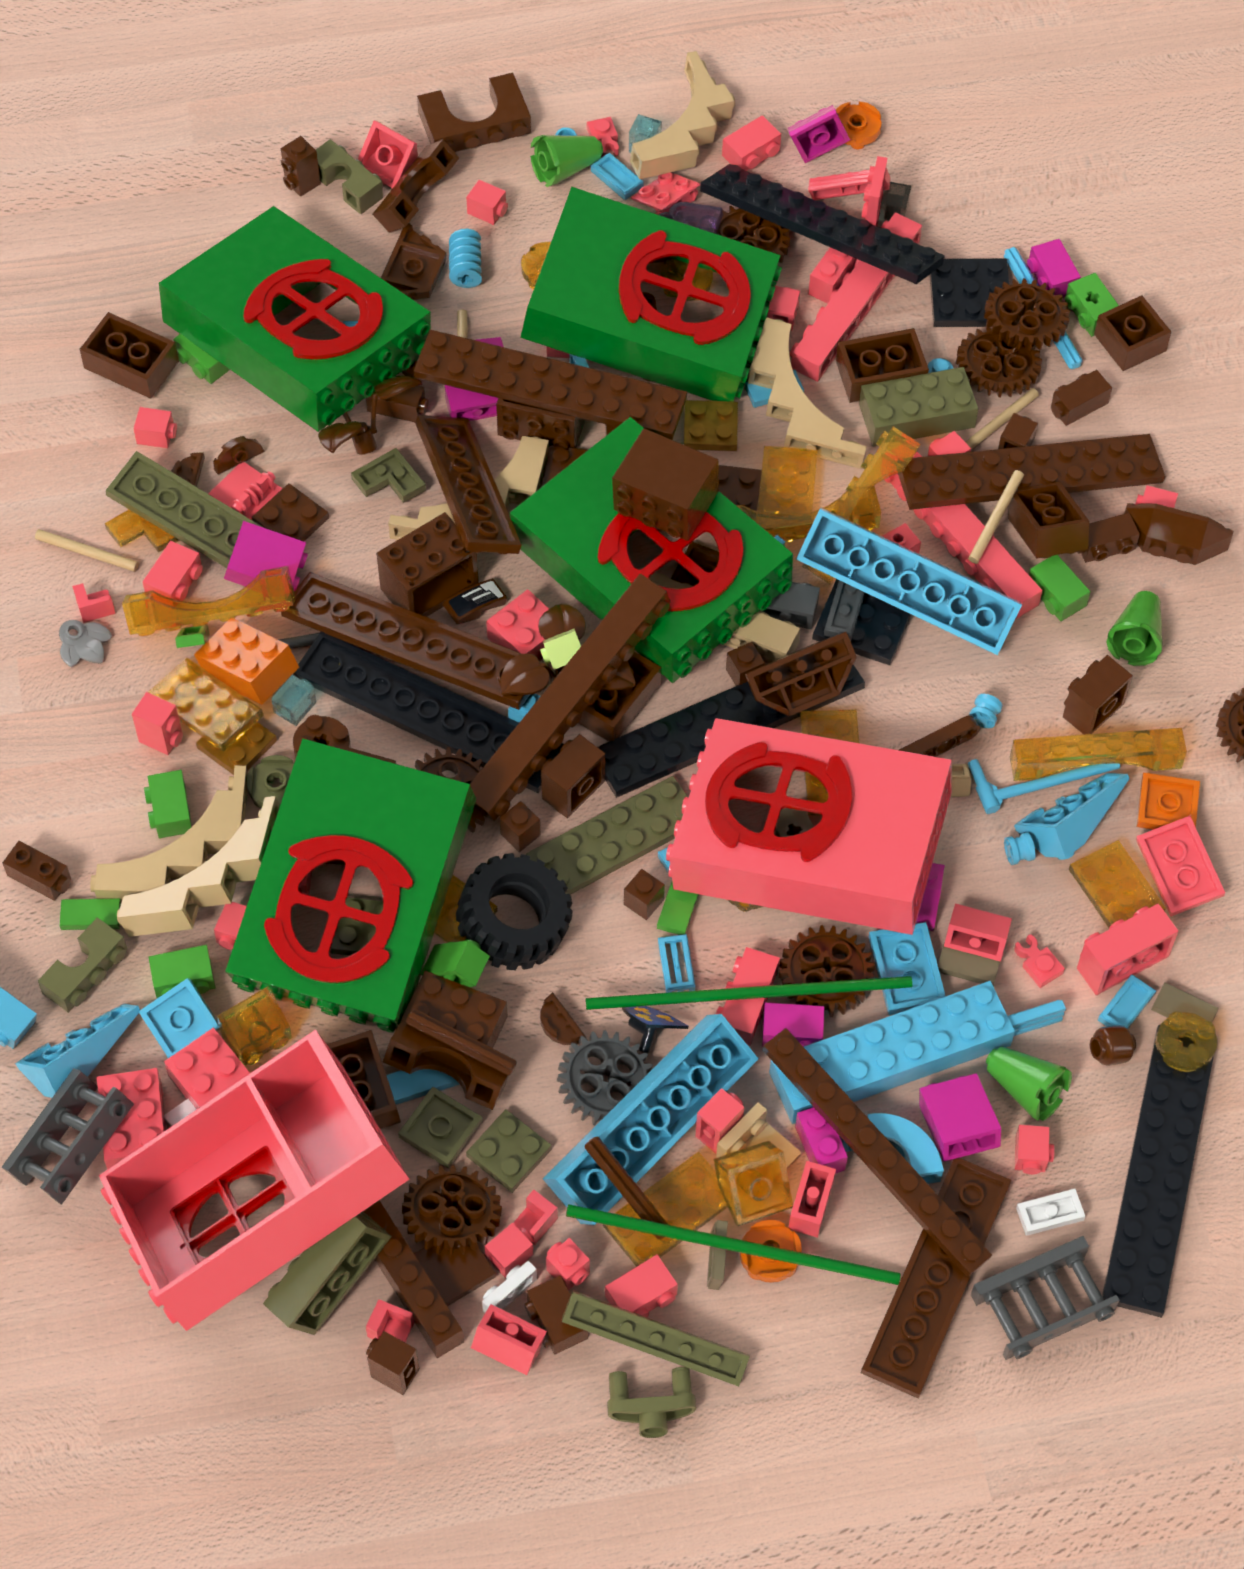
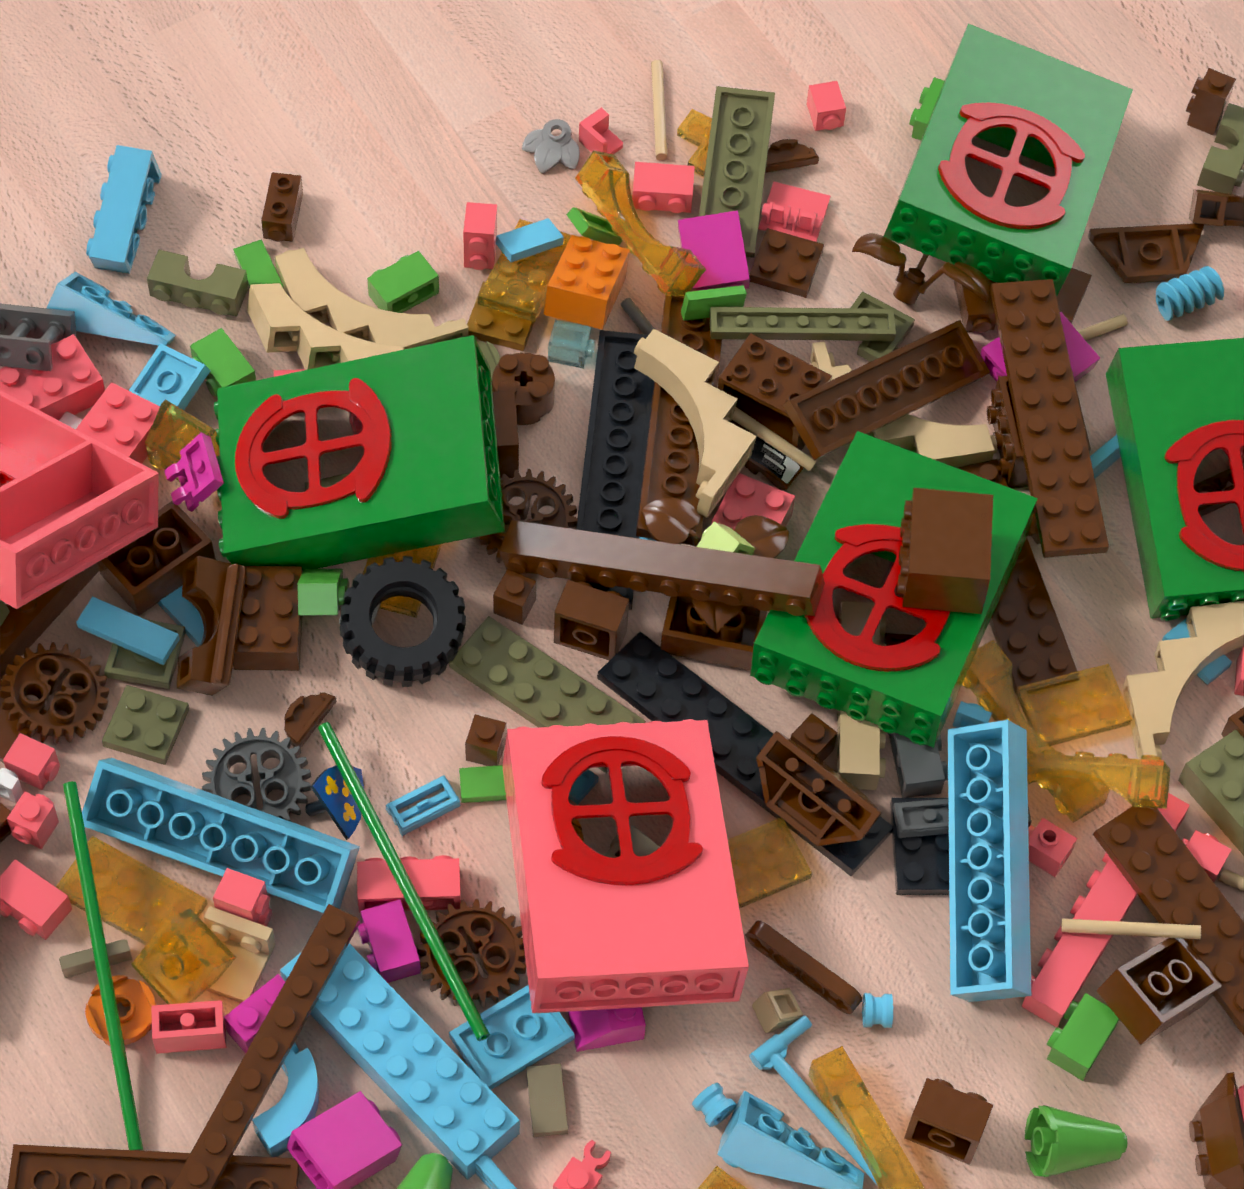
camera: 65 degrees right, 0 degrees up
(129, 355) = (896, 50): reddish brown brick -> none
(183, 686) = (529, 240): none -> medium azure tile
(236, 452) = (836, 186): reddish brown plate -> none
(299, 1010) = (196, 471): none -> dark pink plate
(315, 576) = (698, 303): none -> bright green tile
(366, 523) = (802, 323): none -> olive plate
(424, 1126) = (128, 630): none -> medium azure tile
(453, 591) = (773, 439): none -> tan bar
(465, 618) = (689, 380): none -> tan arch
(537, 1216) = (77, 771): coral panel -> none
(623, 1182) = (123, 833): reddish brown axle -> none
(711, 425) = (1112, 605): pearl gold plate -> none
(977, 932) = (584, 1092): coral brick -> none
(1110, 538) = (1180, 1069): reddish brown brick -> none

